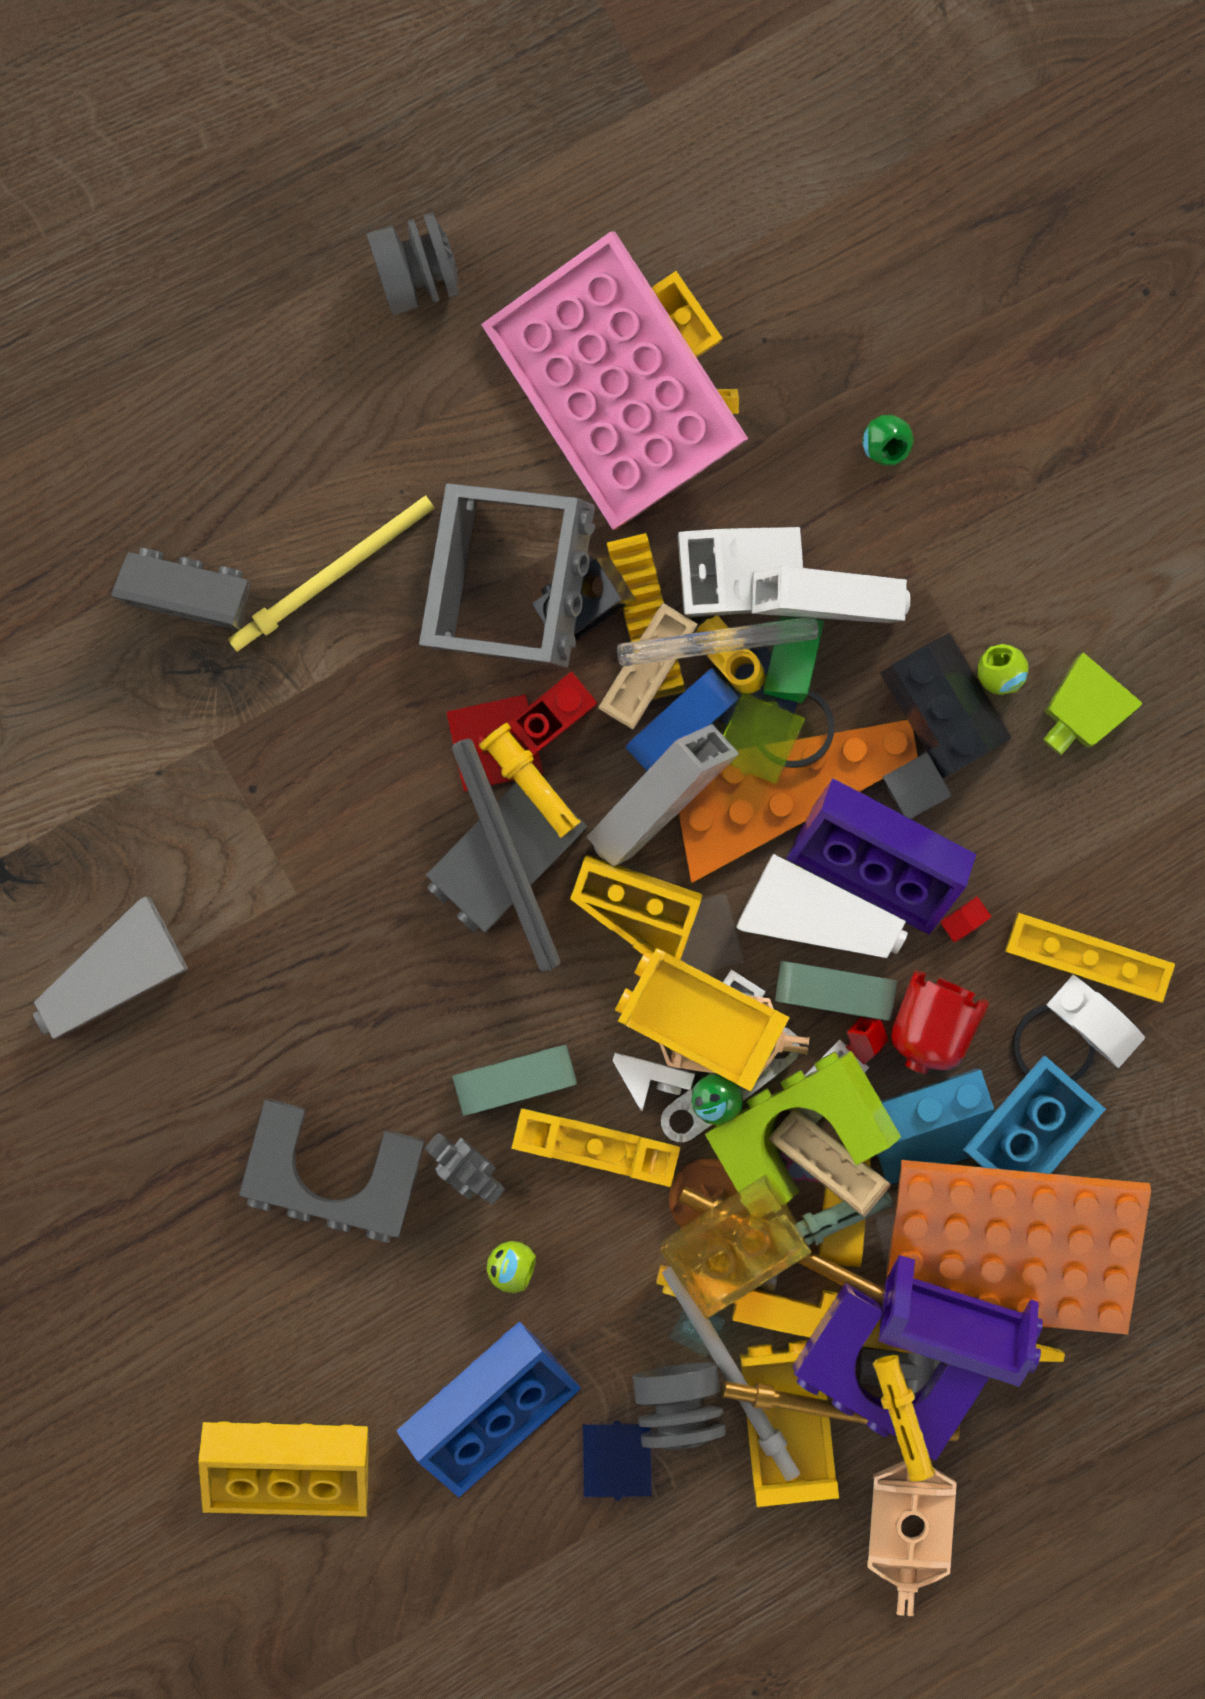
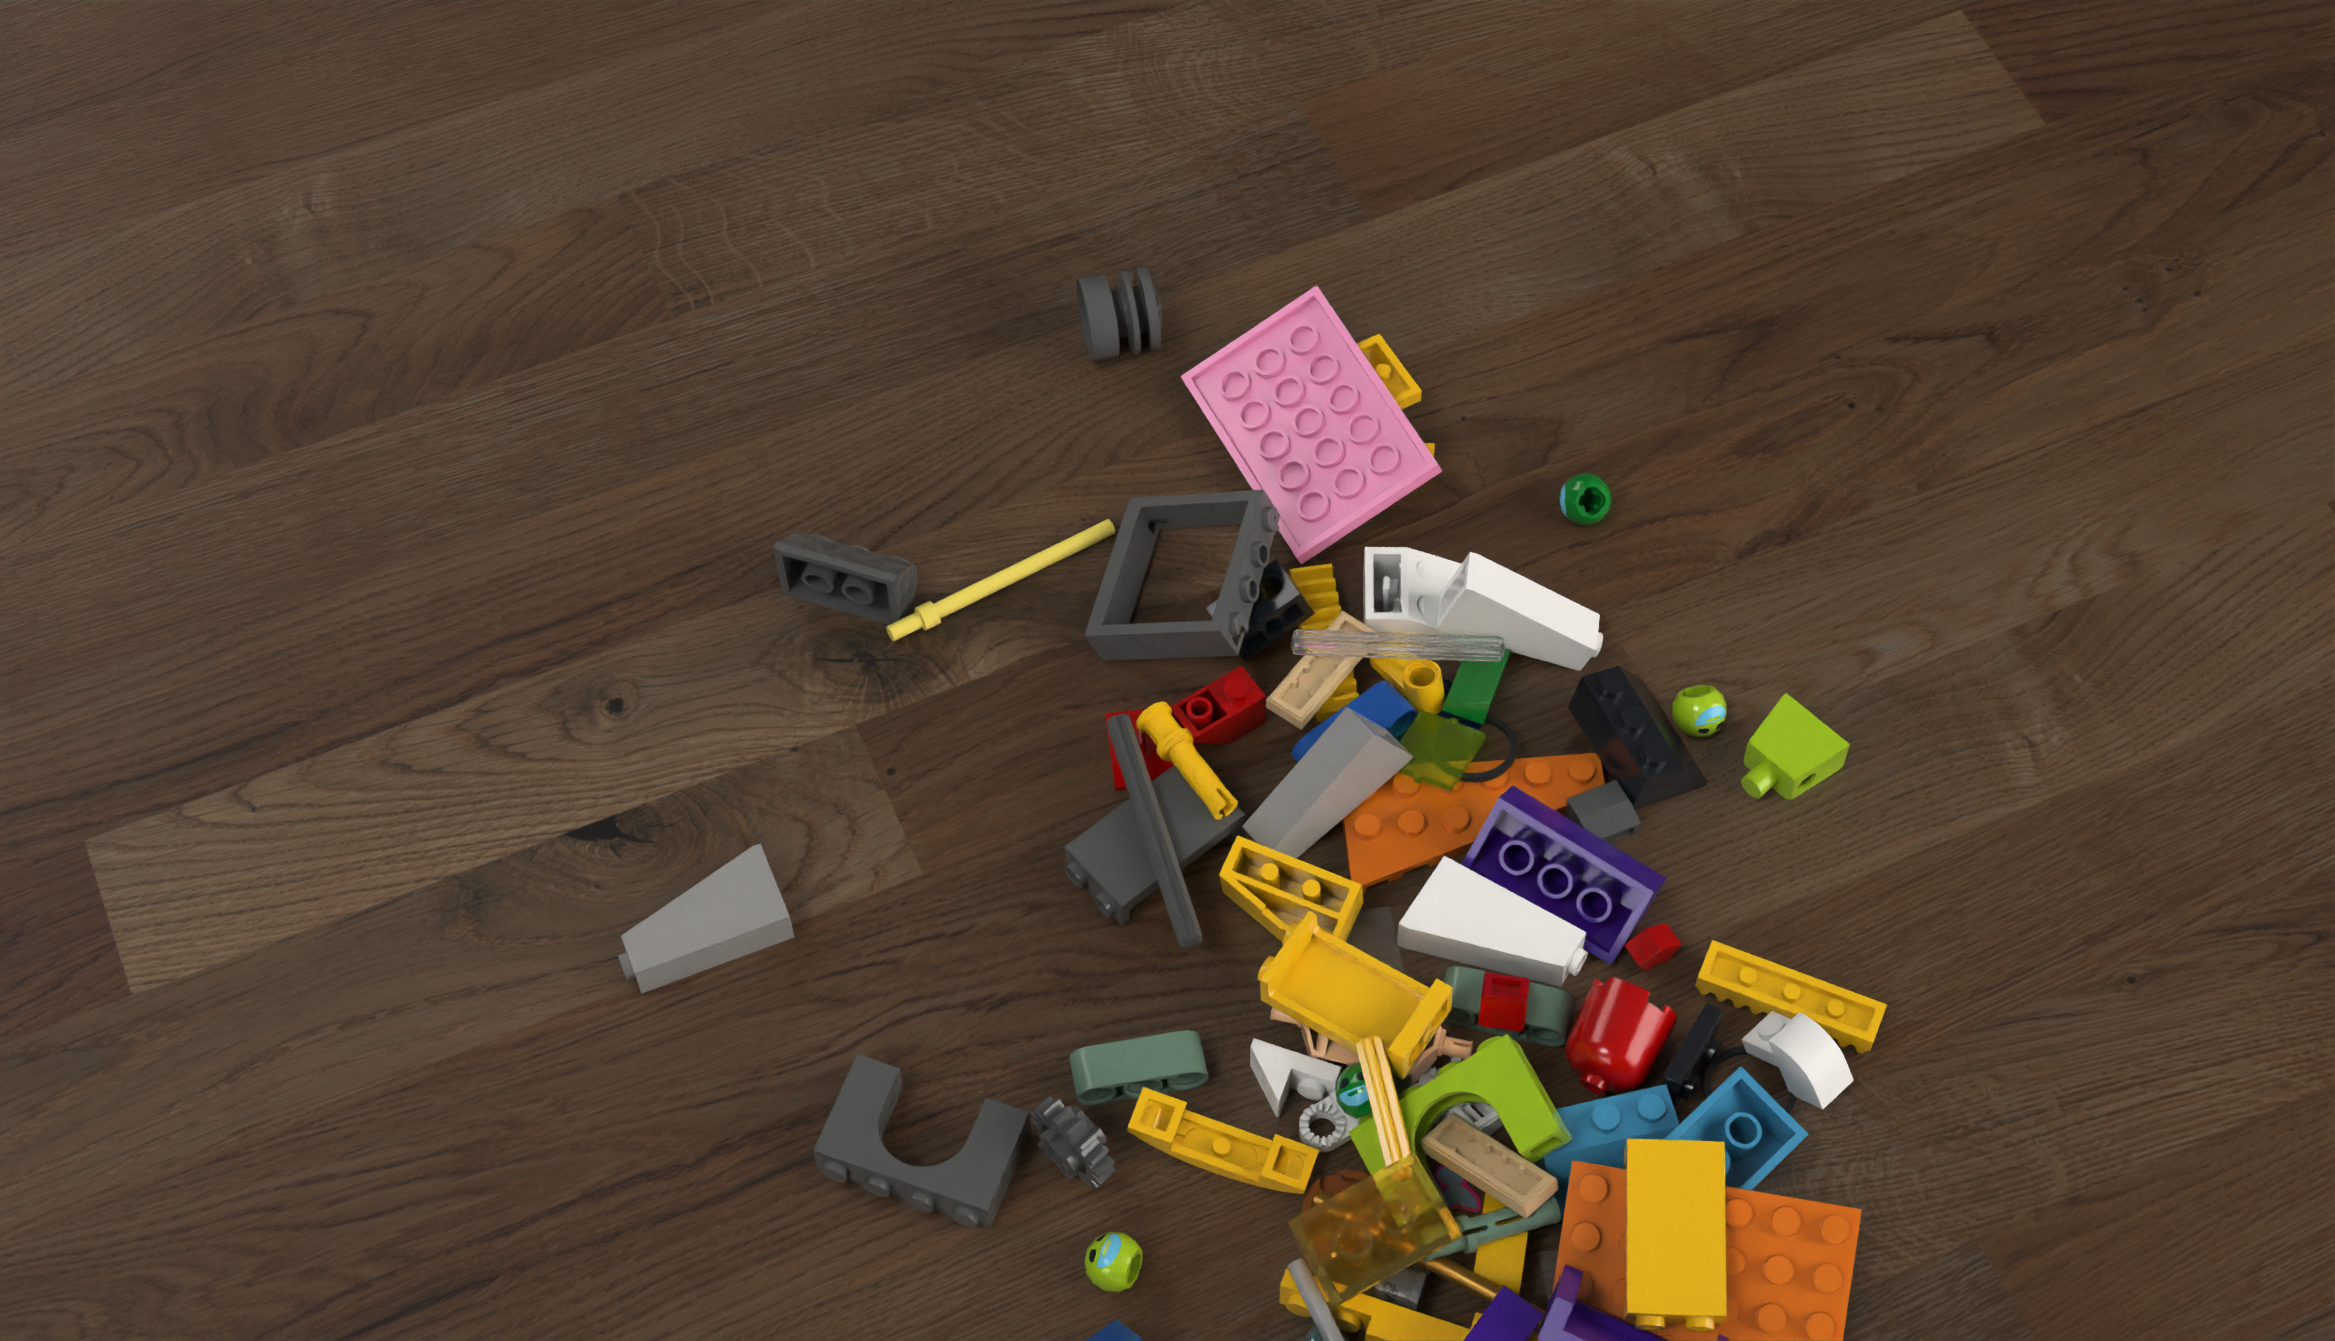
camera: 10 degrees right, 30 degrees down
(736, 1123) = (1383, 1099): none -> yellow axle
(835, 997) = (1503, 1001): none -> red slope
(866, 1038) = (1542, 1054): red piece -> none
(992, 1224) = (1675, 1234): none -> yellow panel
(1009, 1018) = (1697, 1047): none -> black plate

